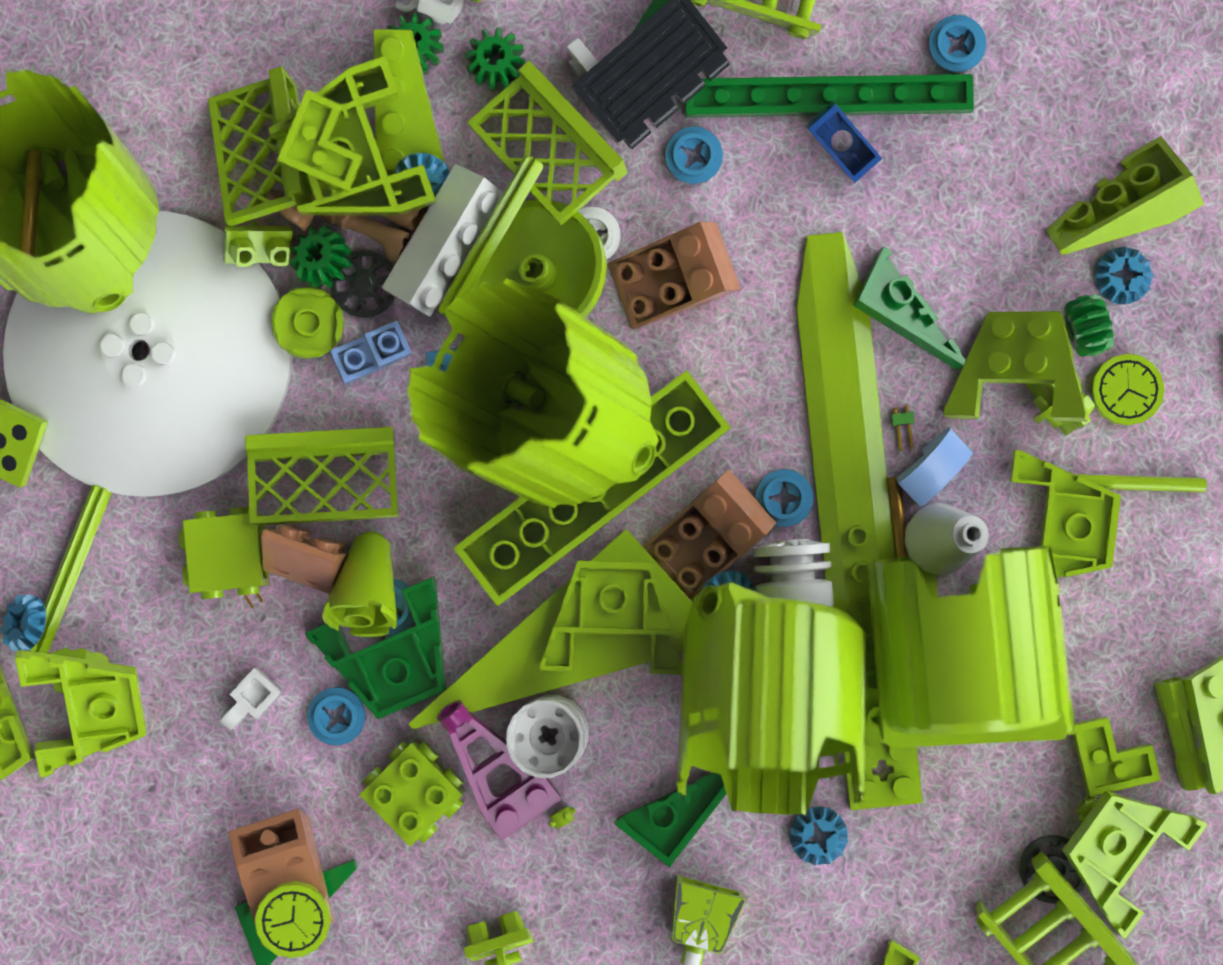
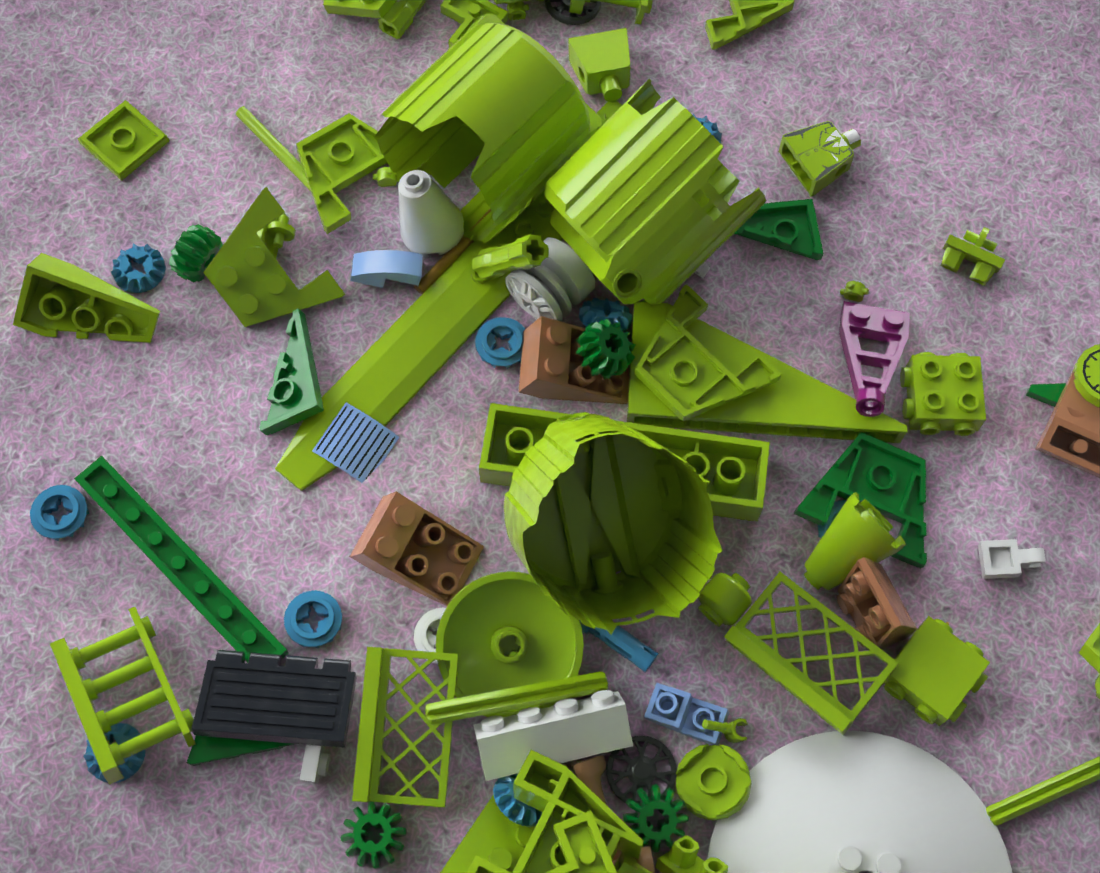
camera: 140 degrees left, 20 degrees down
(320, 719) = (961, 480): dark azure gear -> none
(331, 368) = (727, 728): none -> lime hand
(419, 462) = (725, 599): none -> lime head
(541, 756) = (823, 322): white wheel -> none
(705, 562) = (605, 349): none -> green gear
(805, 309) = (355, 443): none -> light blue sticker
(825, 556) = (521, 254): none -> lime axle
(859, 157) = (209, 501): blue piece -> none
(901, 419) = (373, 318): piece -> none
(961, 826) = (601, 62): none -> lime torso
(1024, 540) = (385, 177): none -> lime piece
(1127, 389) = (218, 202): lime tile -> none

